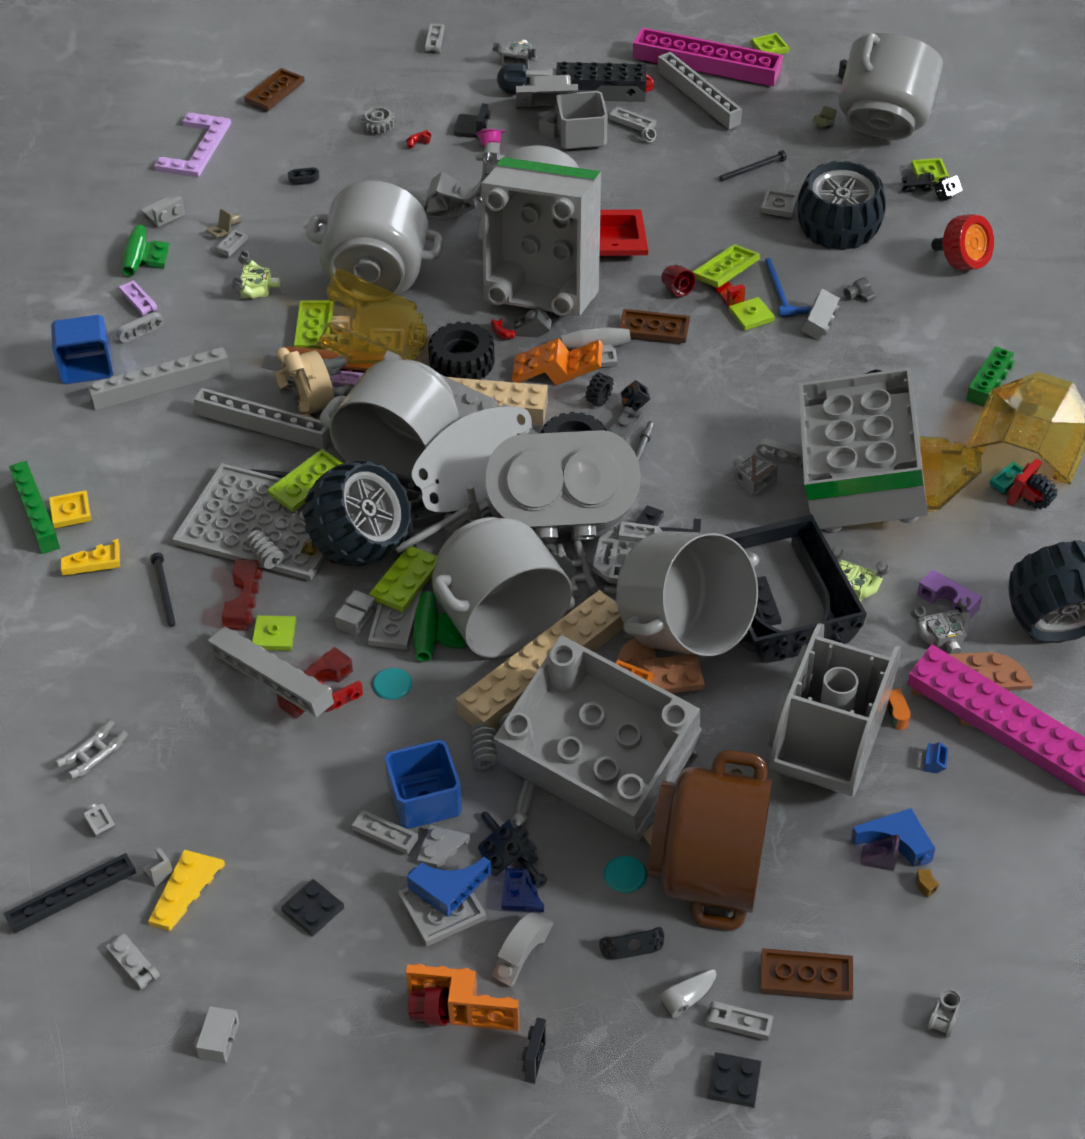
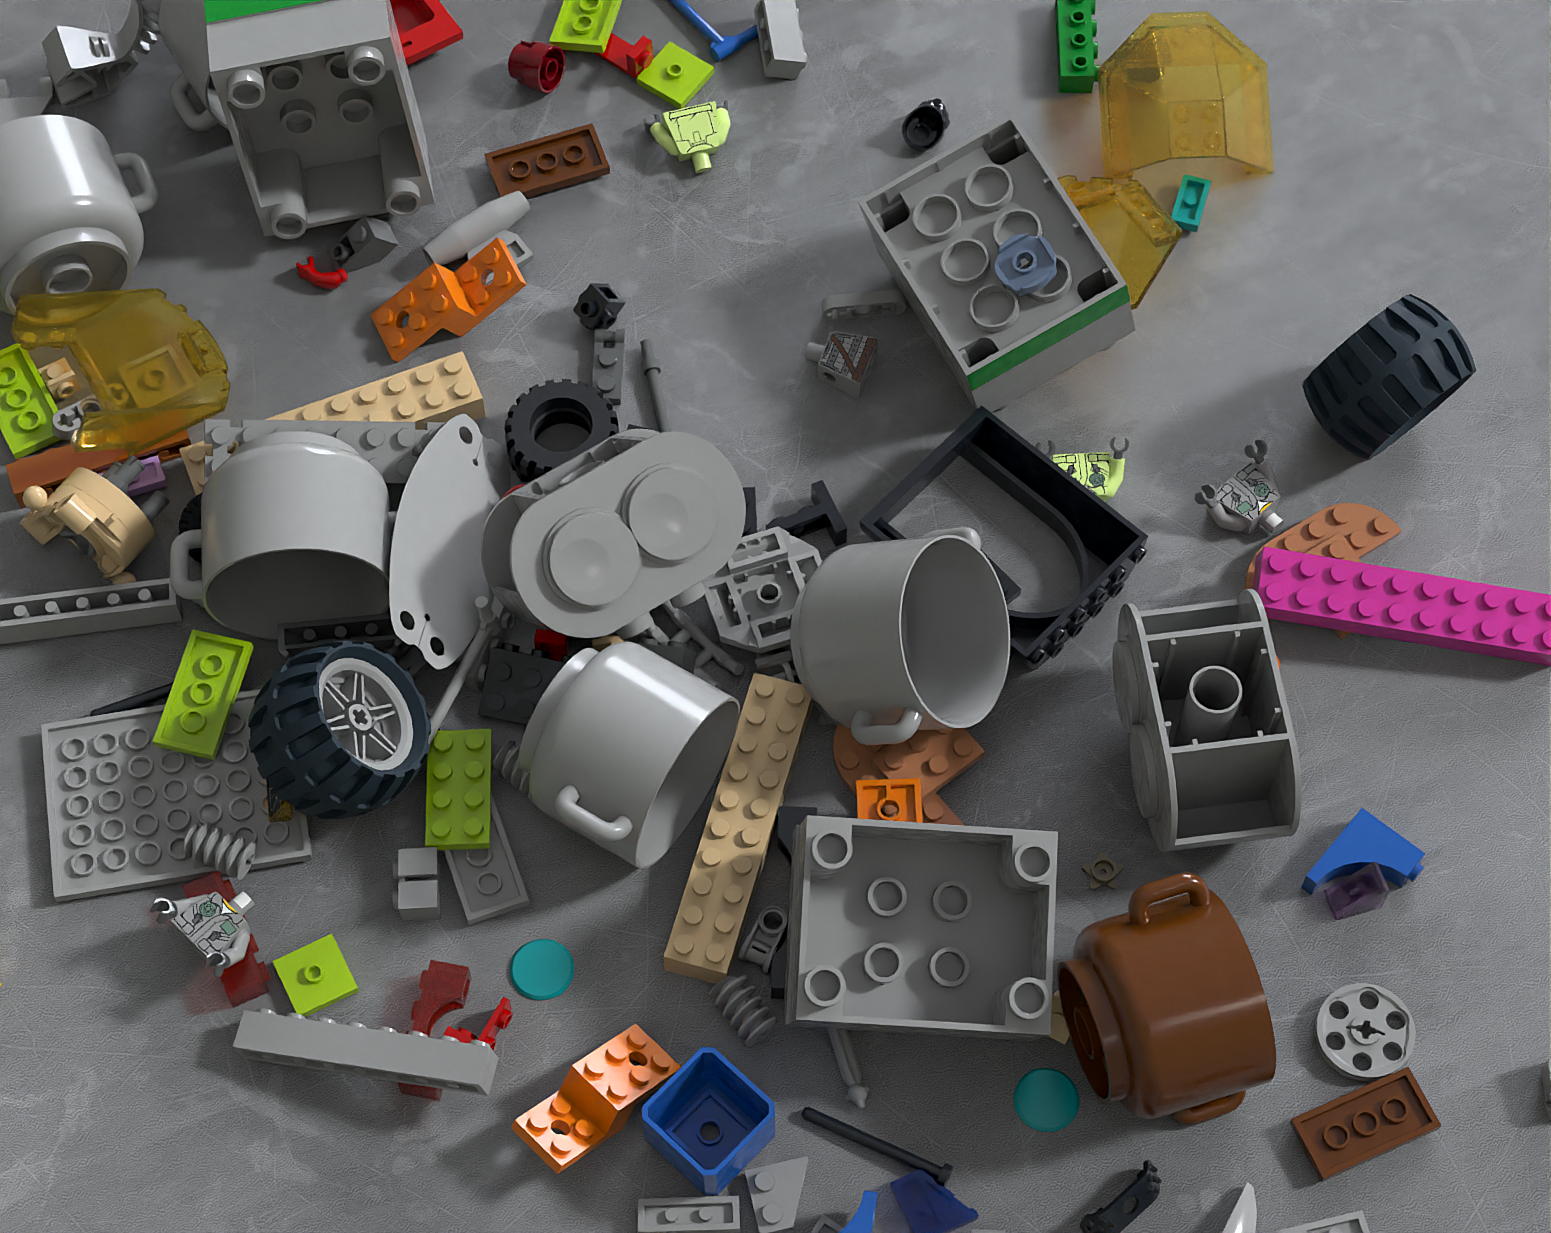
camera: 30 degrees left, 15 degrees up
(157, 560) = (52, 943): black bar -> none
(233, 578) = (210, 926): none -> torso
(366, 752) = (595, 1098): none -> orange bracket
(433, 627) = (547, 852): green plate -> none
(462, 338) = (286, 318): black tyre -> none
(506, 846) = (873, 1150): black bracket -> none
(599, 389) = (540, 320): black tyre -> none
(742, 339) = (692, 132): none -> yellowish green torso
(837, 919) = (1352, 1039): none -> light grey wedge
(866, 448) = (1033, 278): none -> sand blue plate
(926, 882) = (1433, 905): pearl gold piece -> none
(935, 758) = (1342, 708): blue piece -> none
(937, 586) = (1198, 431): medium lavender arch -> none
(1032, 487) = (1236, 209): plate -> none

